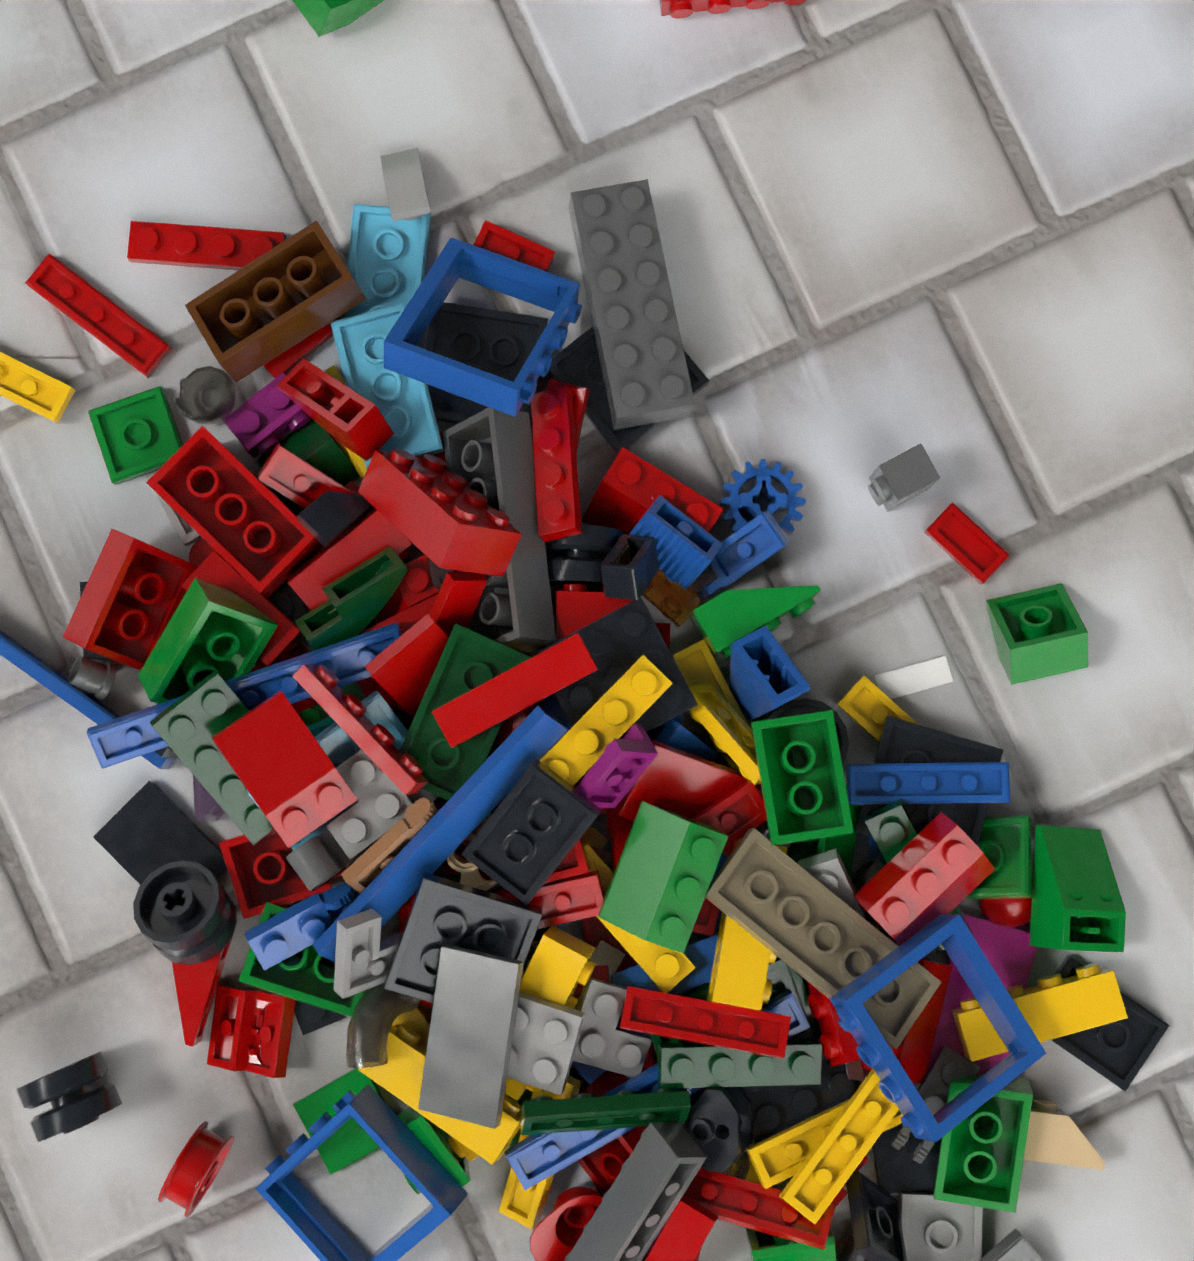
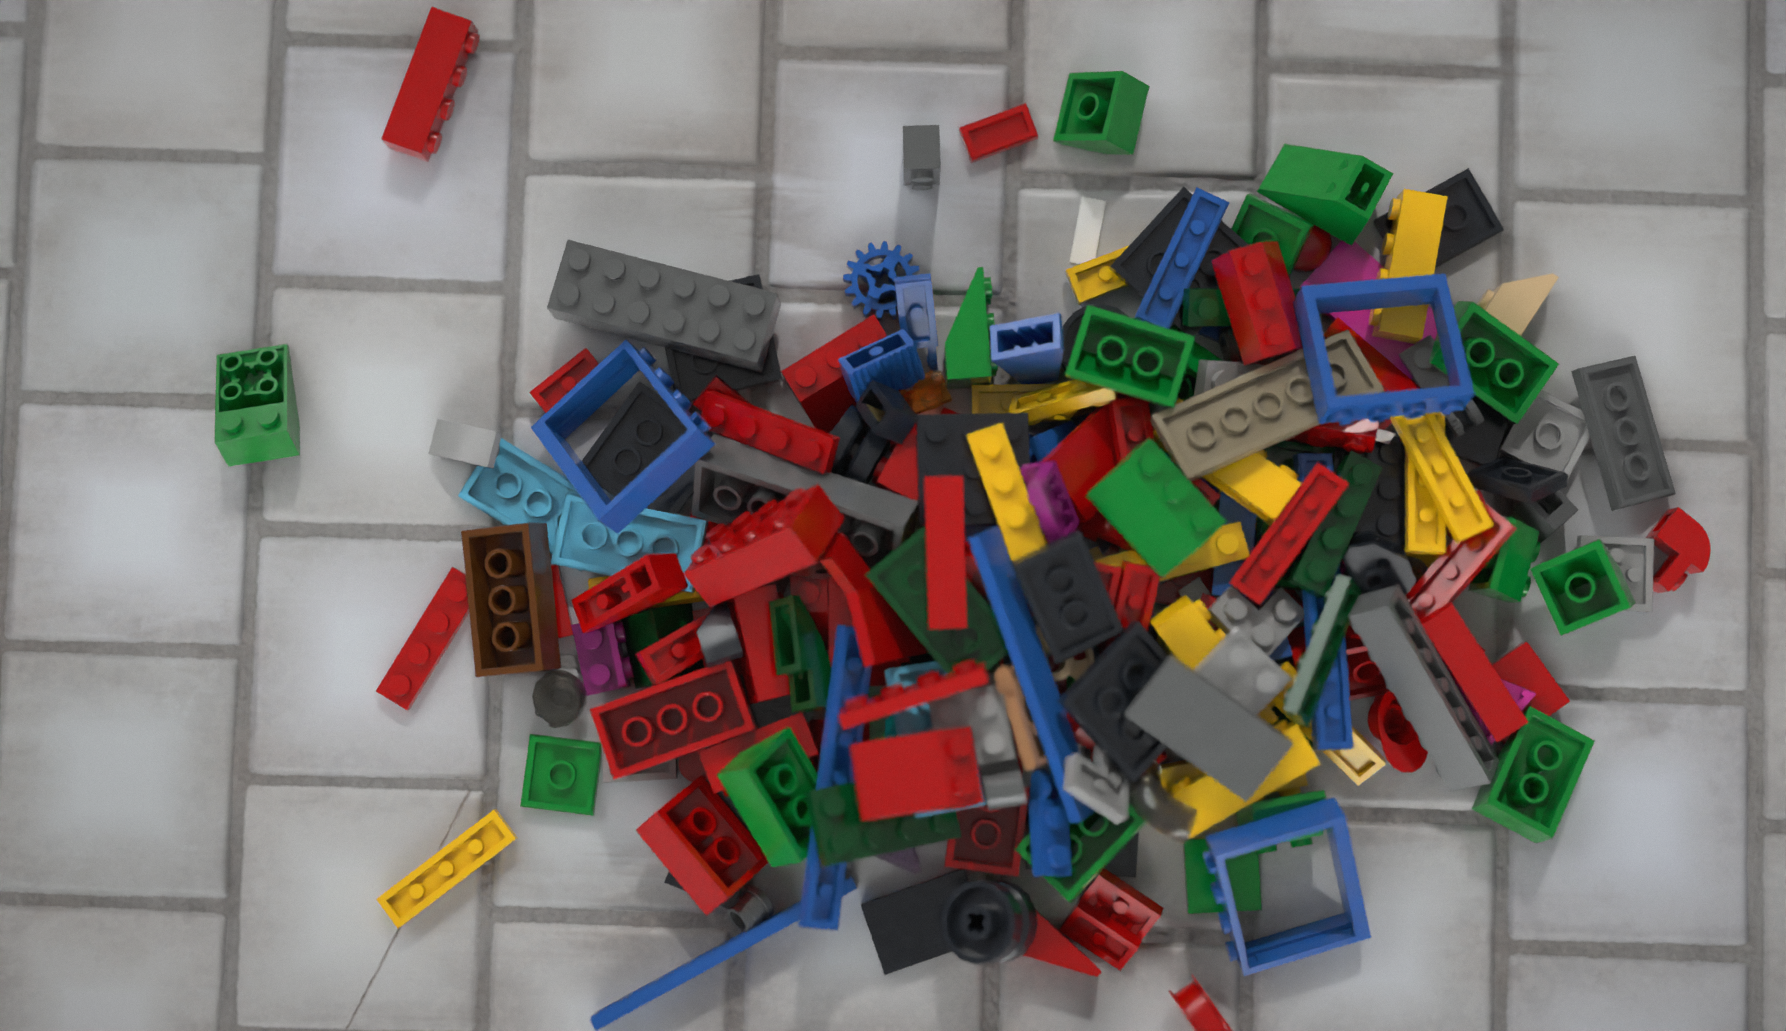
camera: 65 degrees left, 0 degrees up
(98, 315) = (441, 759): red tile -> none

